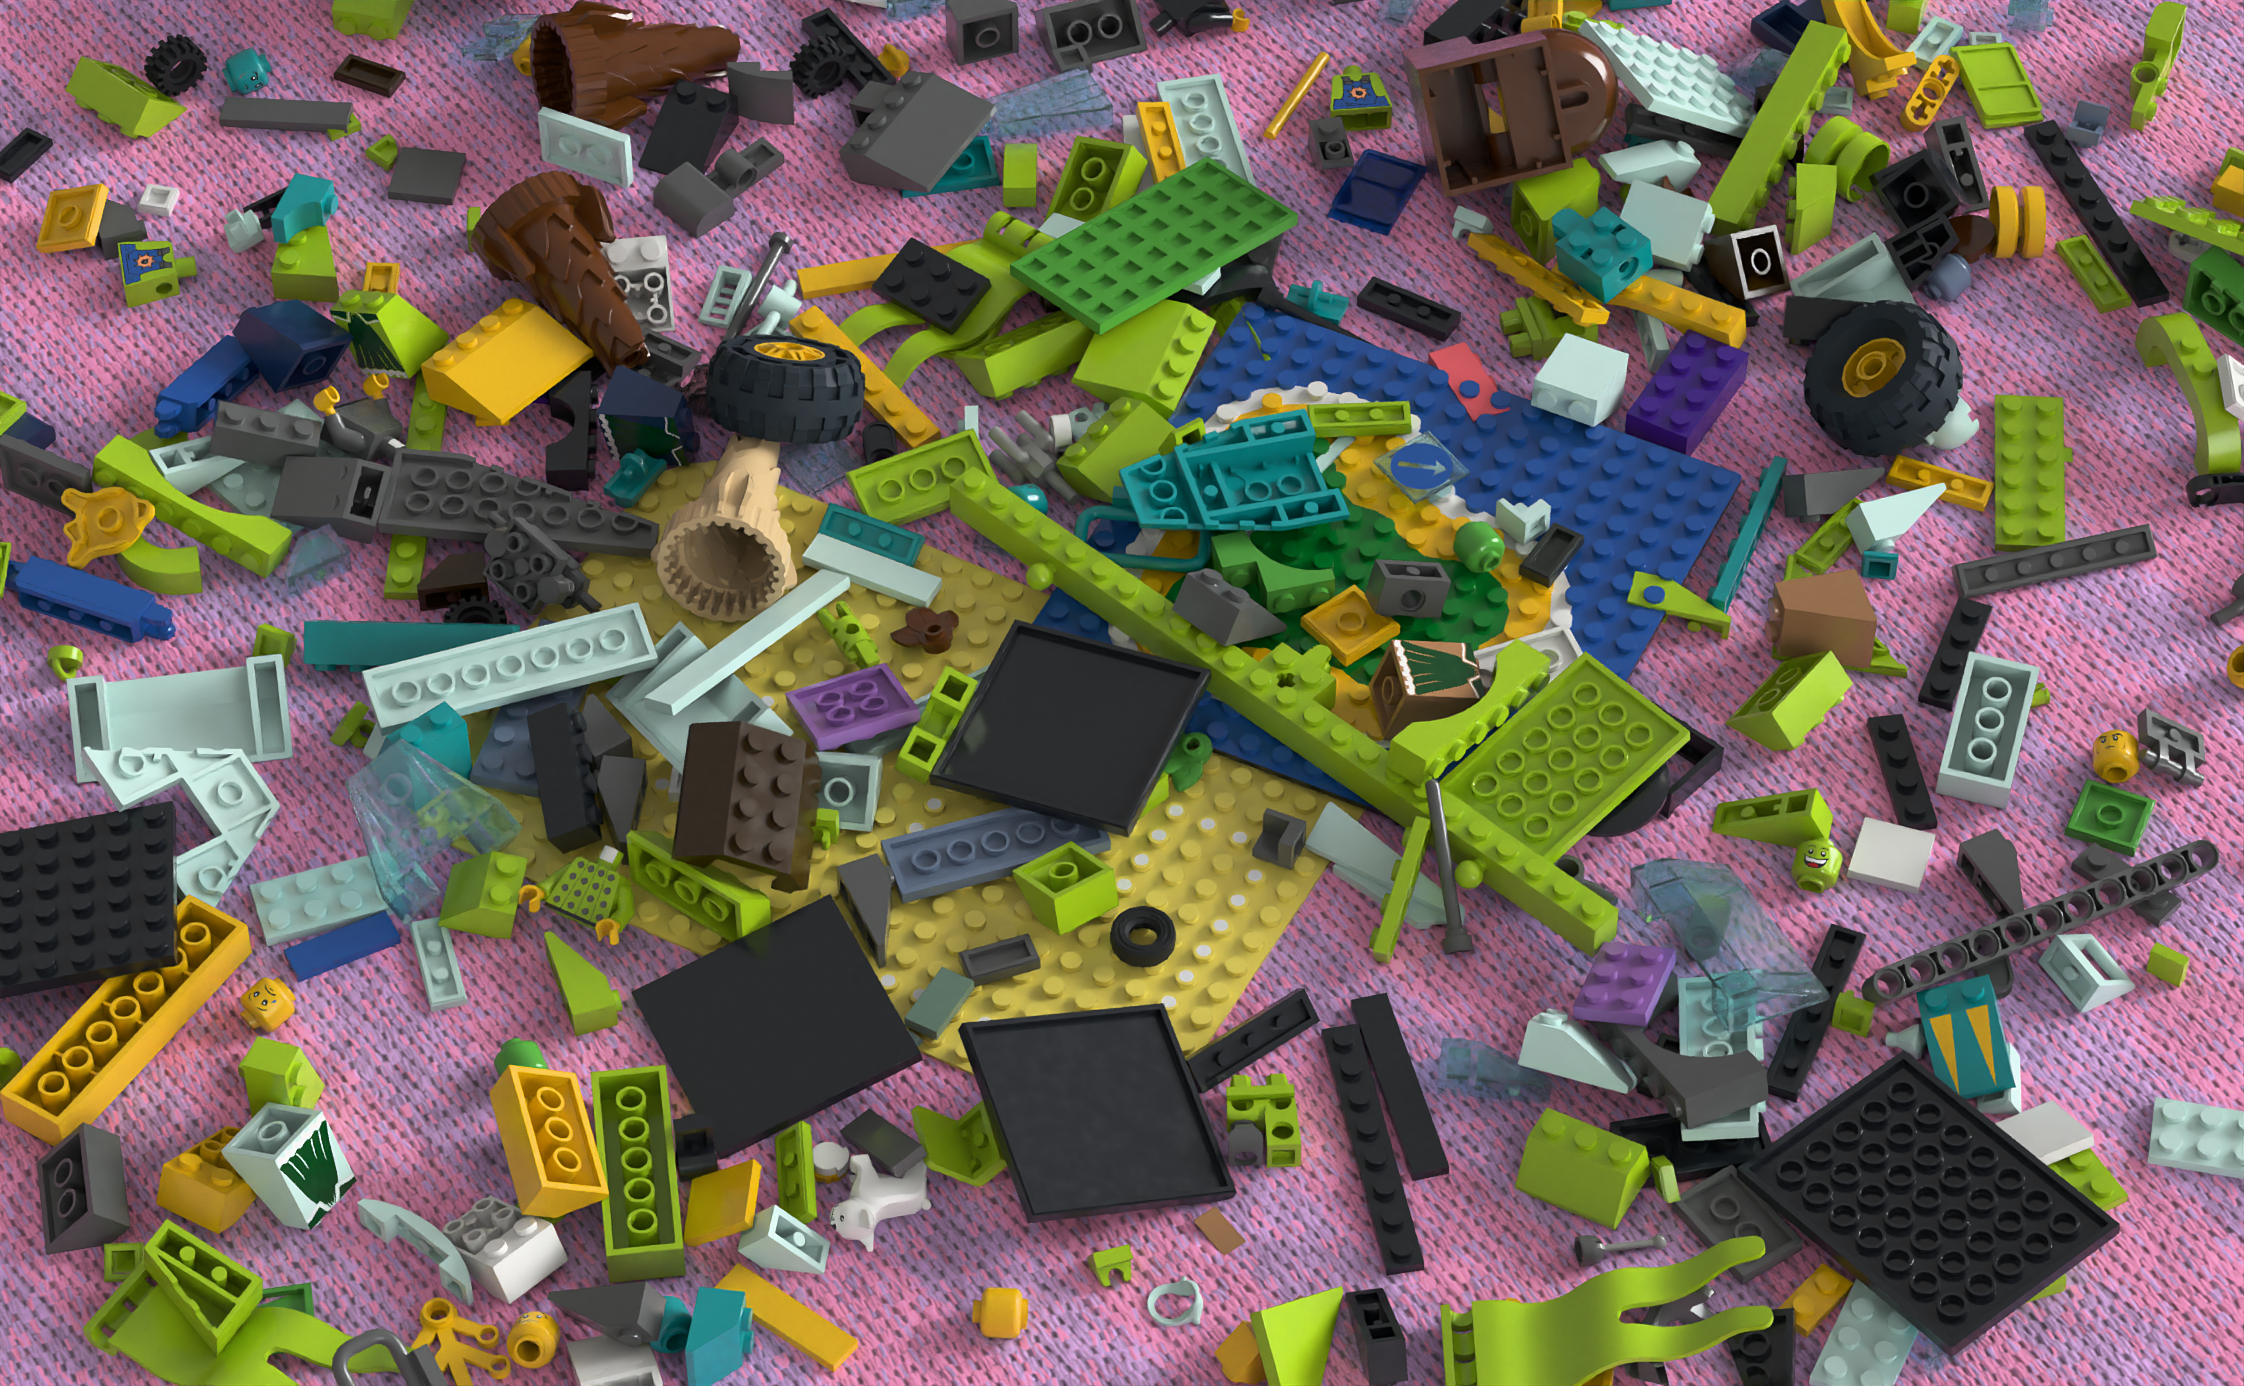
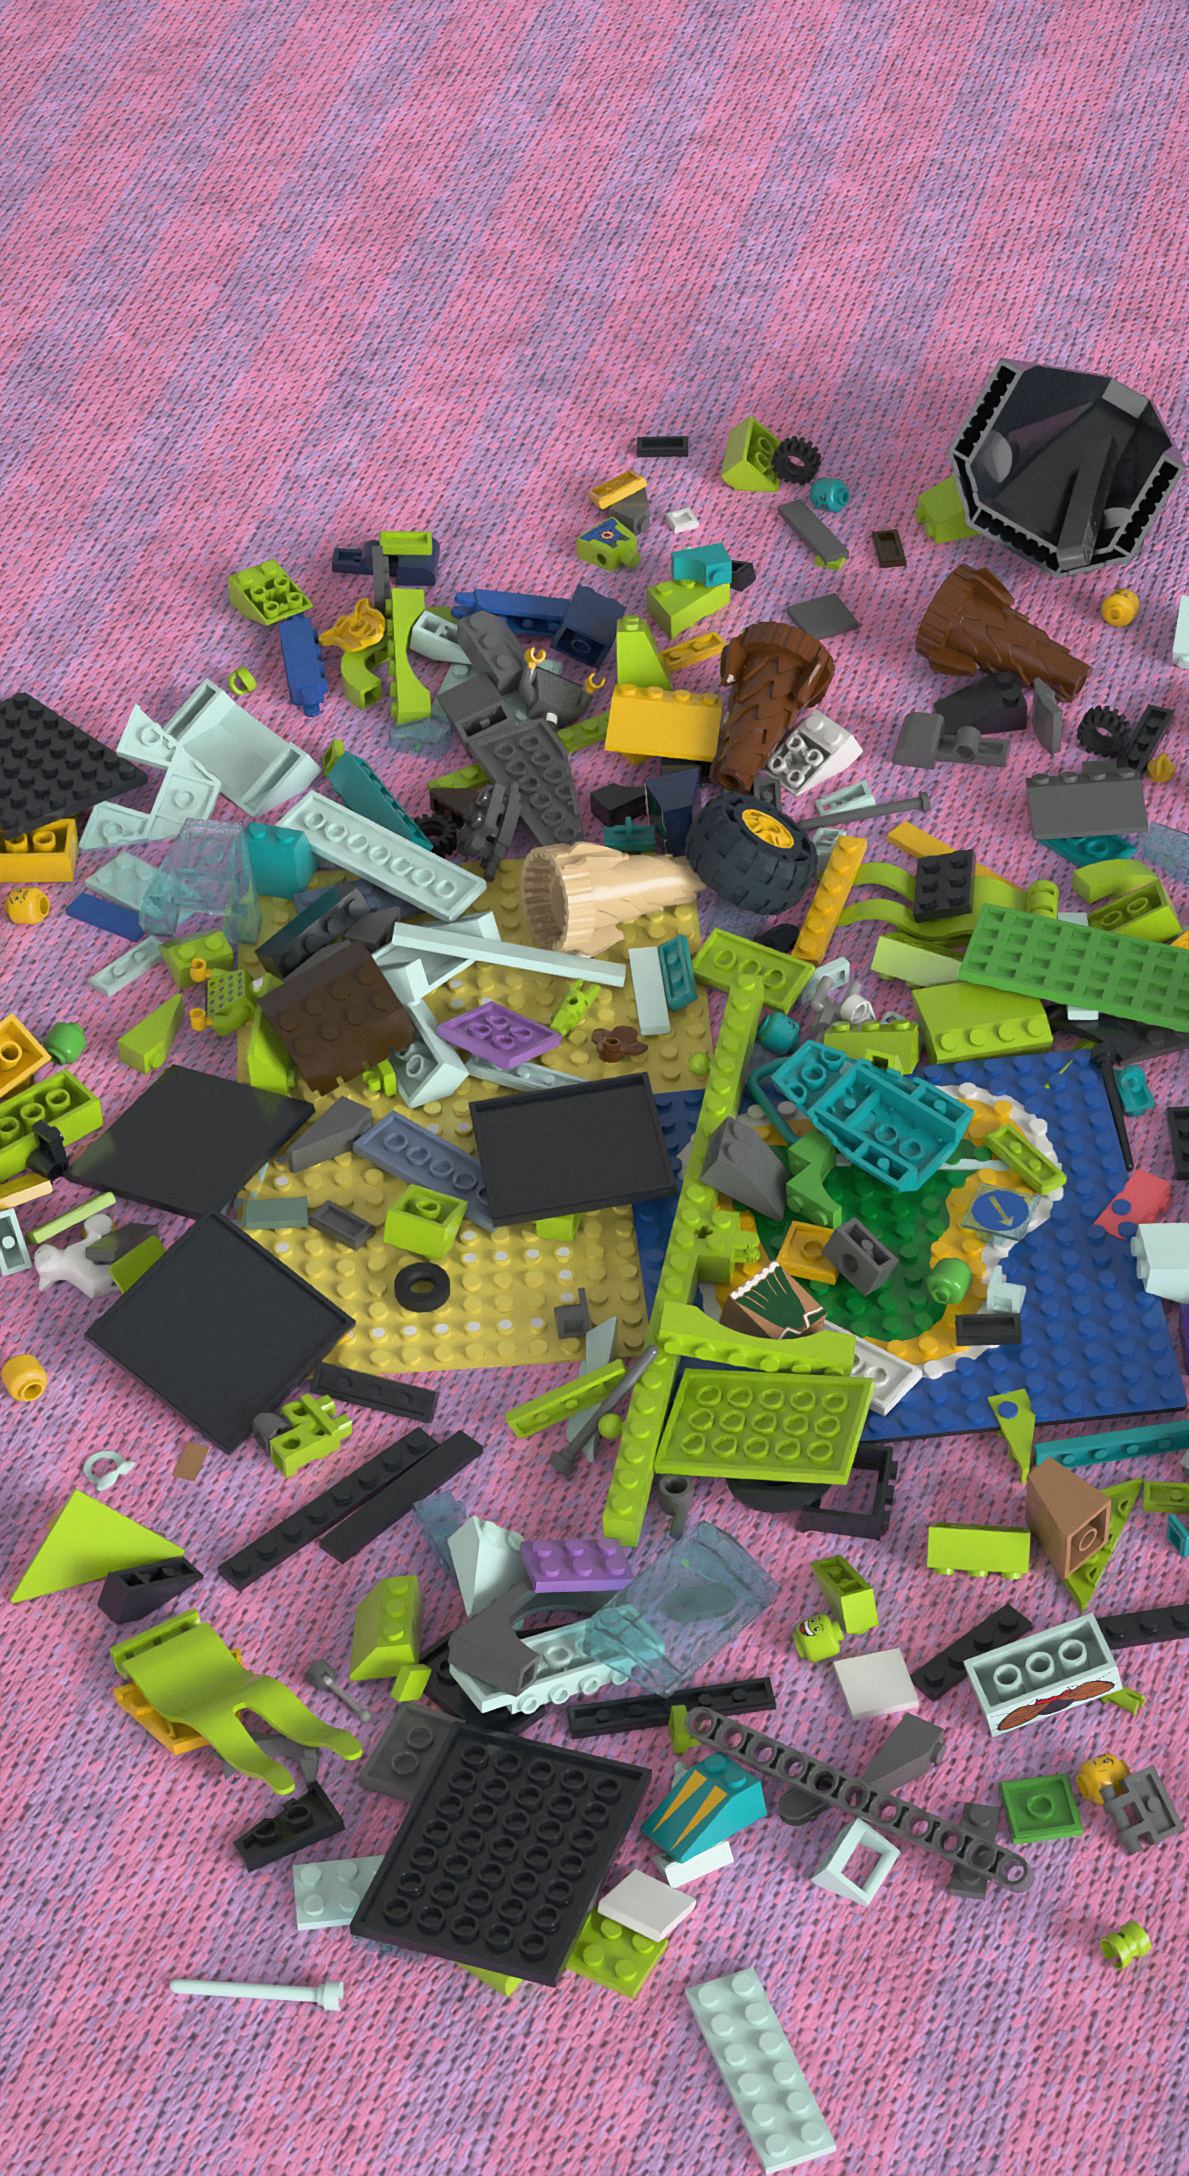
camera: 60 degrees right, 5 degrees down
(383, 152) = (825, 587): lime tile -> none
(585, 147) = (906, 664): light aqua tile -> none
(779, 307) = (854, 824): light aqua piece -> none
(937, 724) = (536, 1072): lime arch -> none
(1111, 1259) = (110, 1411): lime tile -> none
(1188, 764) = (610, 1227): bright green plate -> none
(1817, 1298) = (367, 1835): yellow plate -> none
(2167, 964) = (901, 1912): lime tile -> none

